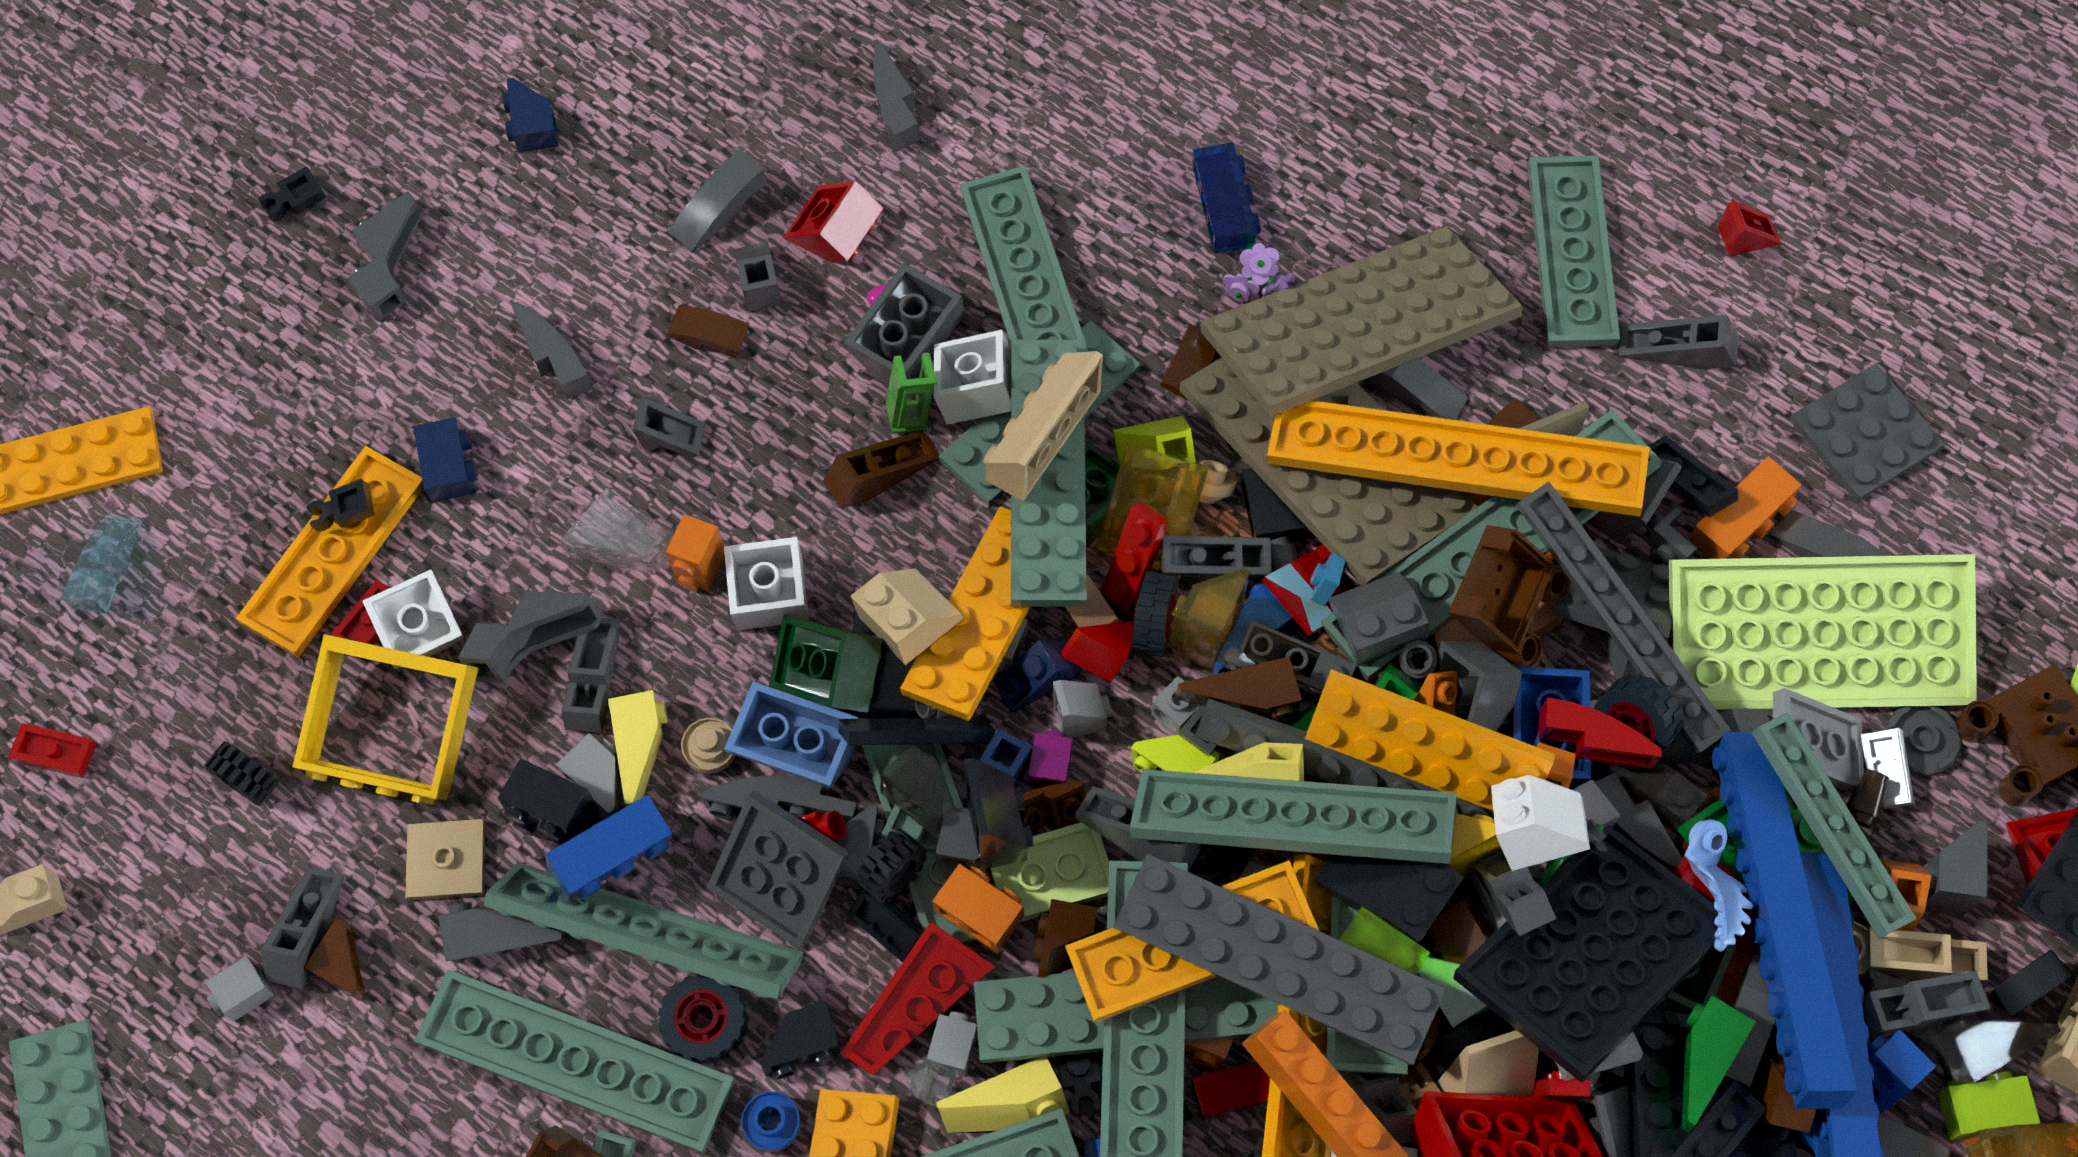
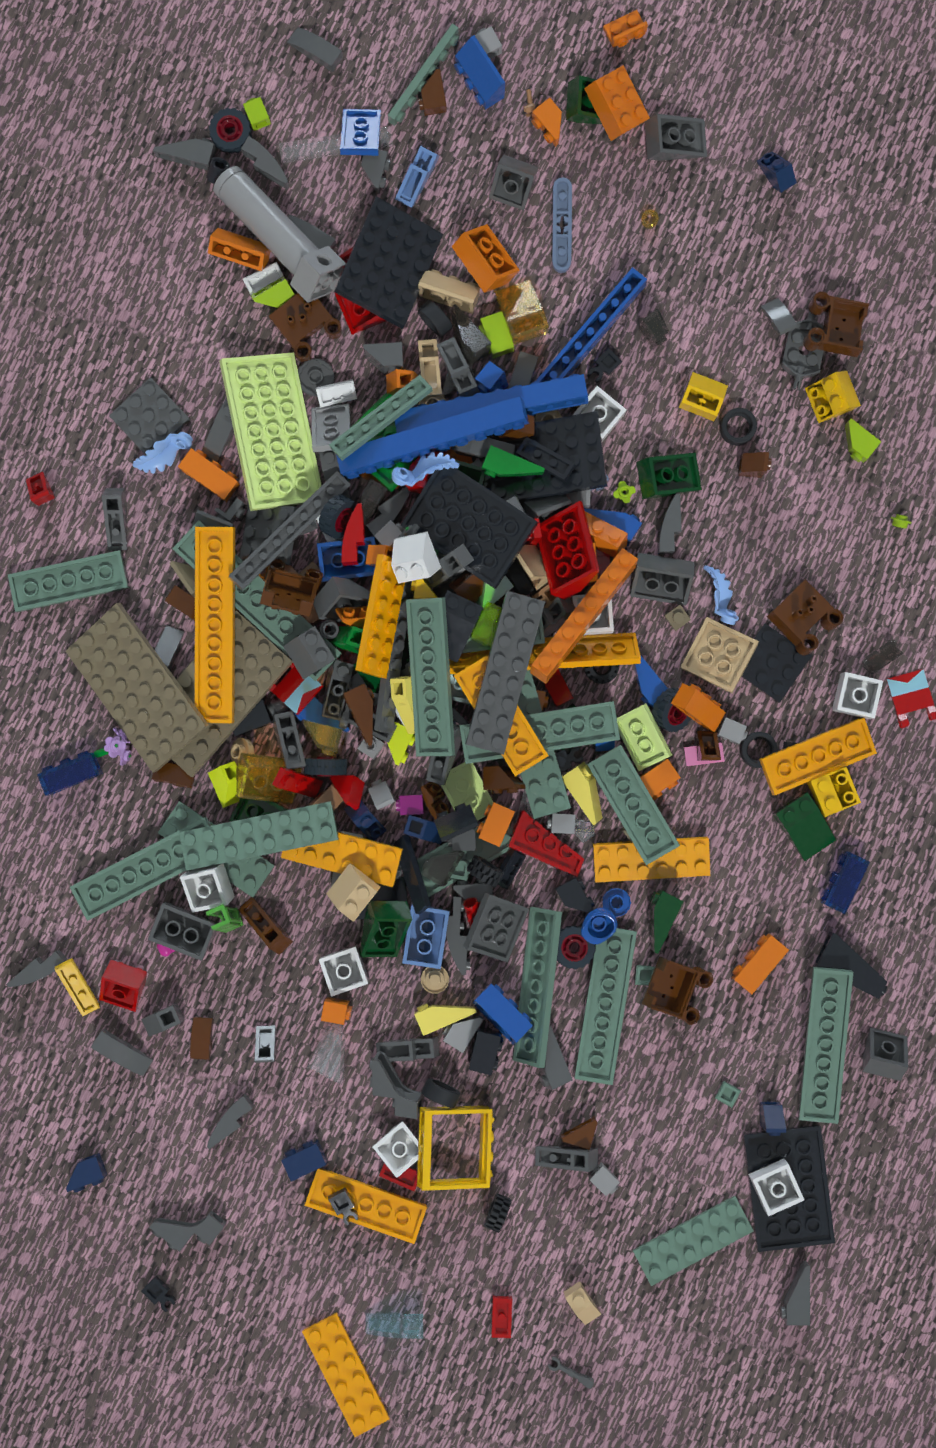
camera: 105 degrees left, 20 degrees up
(445, 859) = (518, 1096): tan plate -> none
(493, 711) = (441, 1093): none -> black tyre
(731, 1070) = (599, 926): none -> blue hat
(848, 150) = (77, 987): none -> yellow tile
(1044, 423) = (238, 841): tan slope -> none
(1327, 578) = (291, 682): dark azure plate -> none
(1695, 480) = (200, 500): black plate -> none
(1797, 441) = (163, 452): none -> light blue plant
(1868, 799) = (356, 401): dark brown cone -> none

